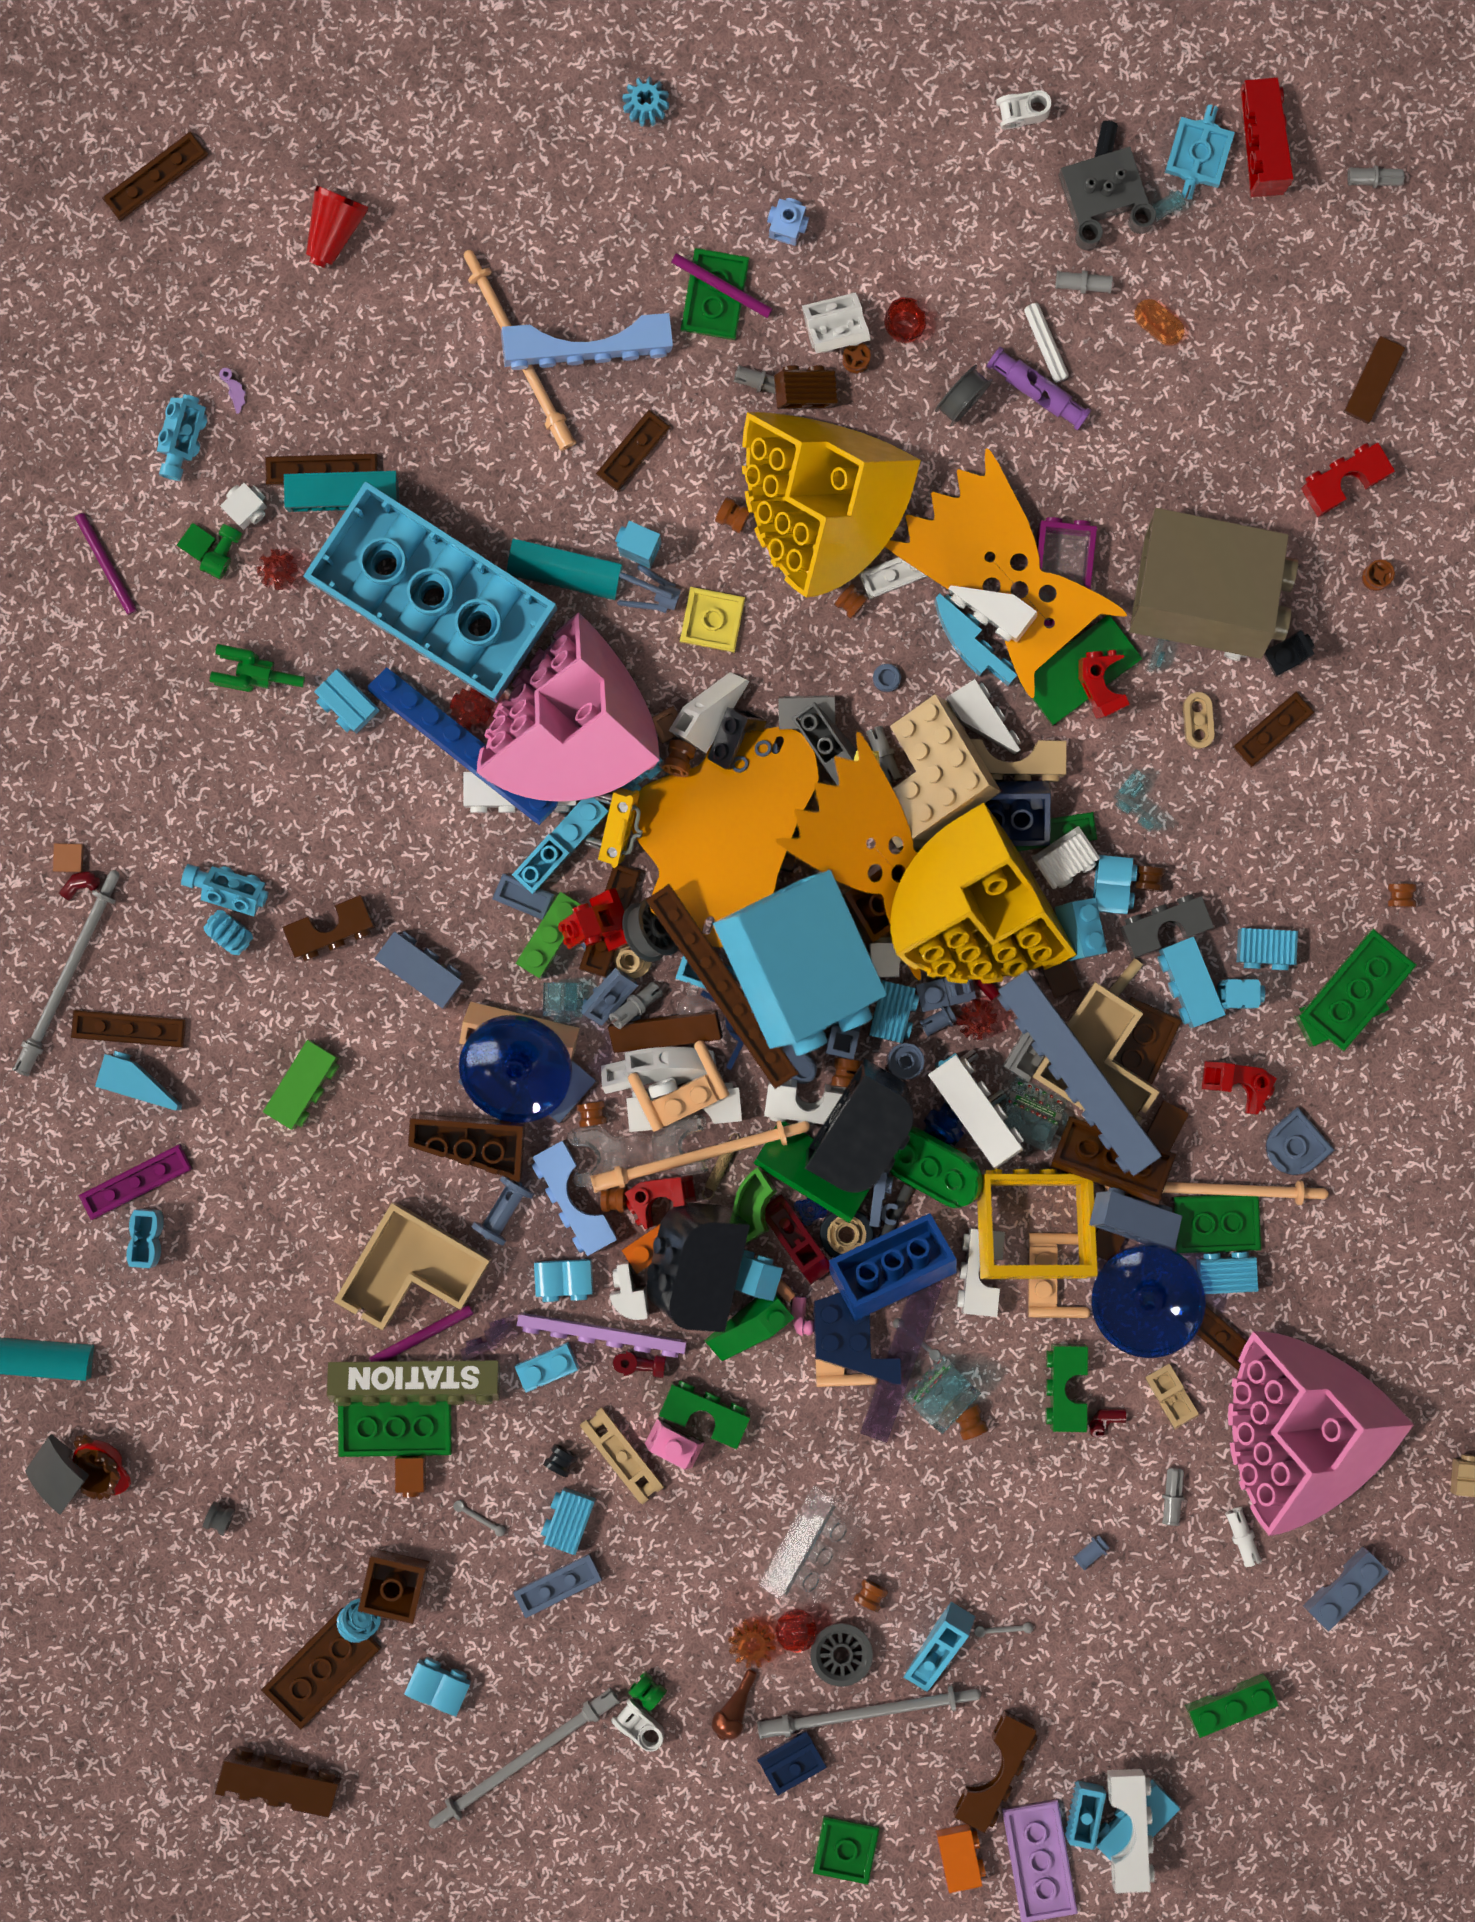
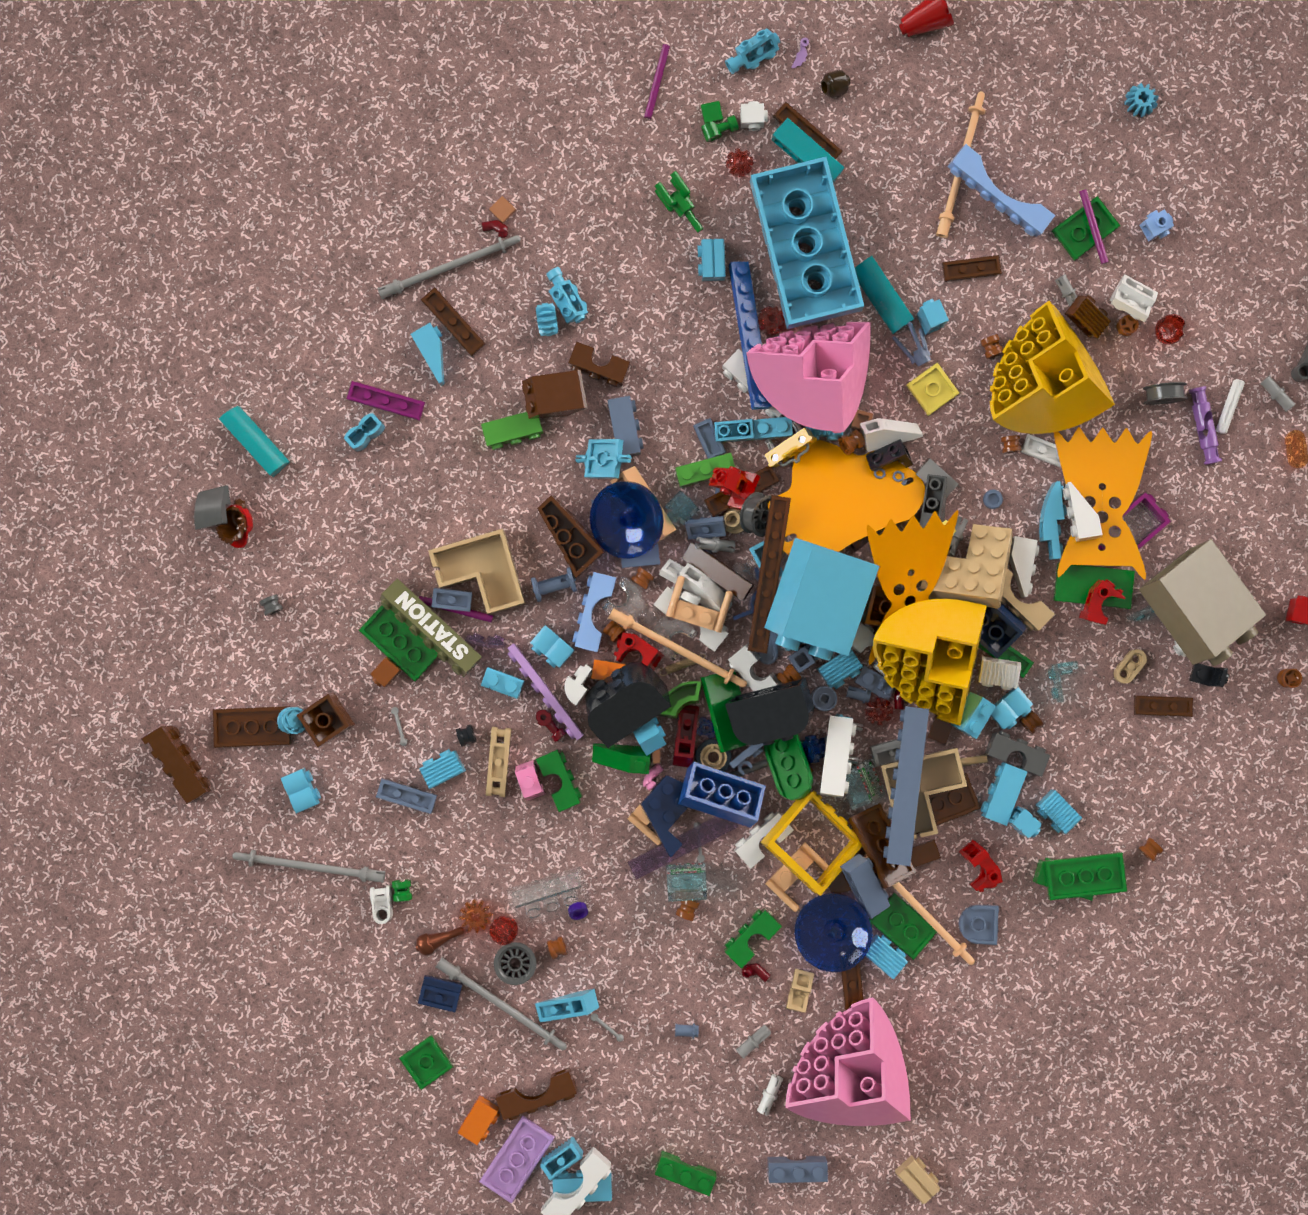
camera: 45 degrees right, 0 degrees up
(300, 388) = (835, 83): none -> dark brown head
(312, 1007) = (554, 394): none -> reddish brown slope
(408, 1329) = (452, 599): none -> sand blue plate
(429, 1026) = (603, 458): none -> medium azure plate
(856, 1534) = (578, 911): none -> dark purple tile

